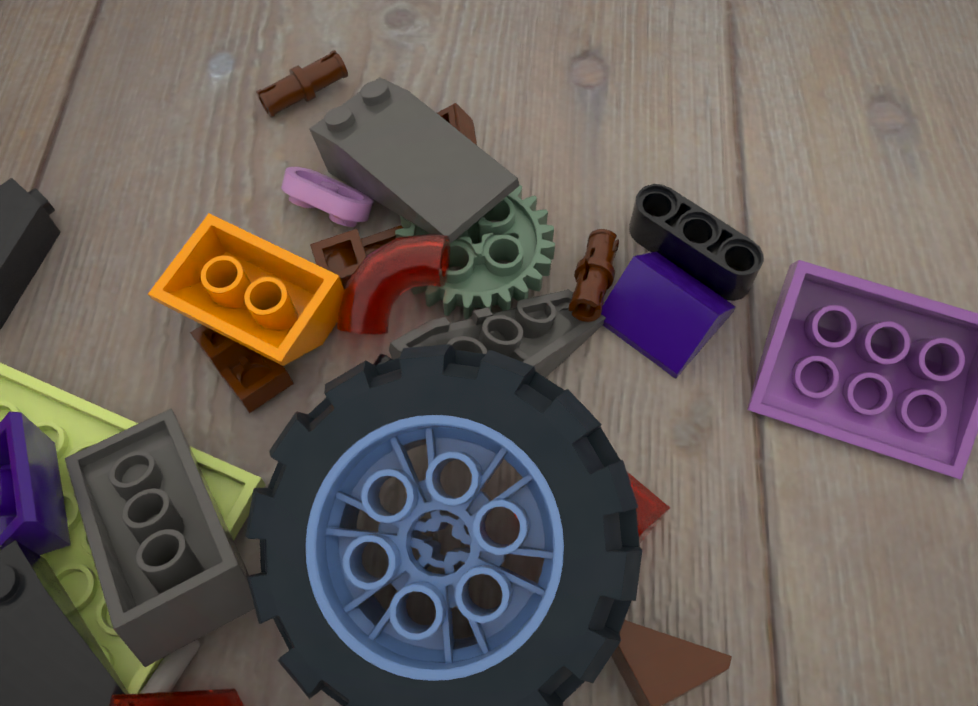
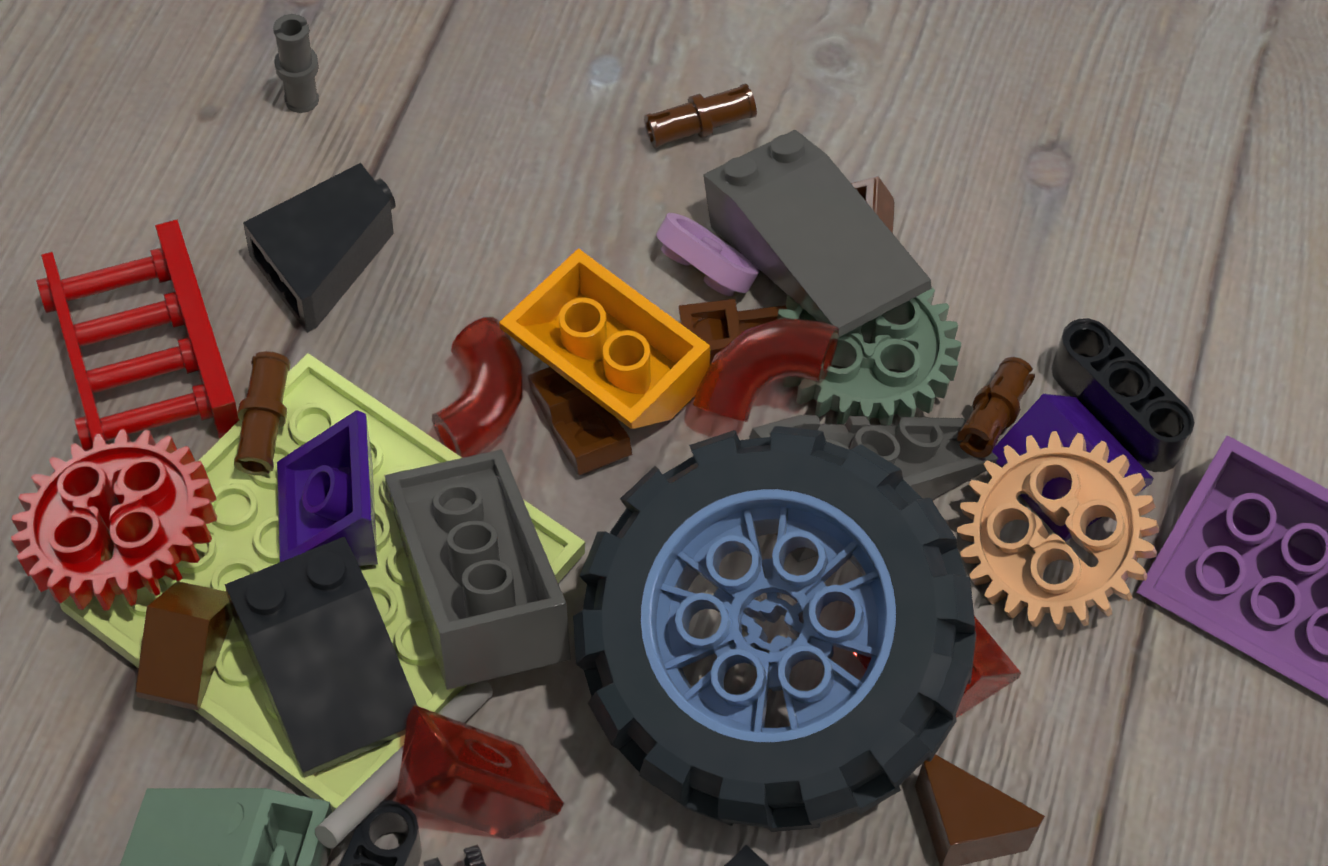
camera: 10 degrees right, 5 degrees down
(156, 358) = (490, 391): none -> clear red cylinder
(701, 332) = (1095, 493): none -> light nougat gear

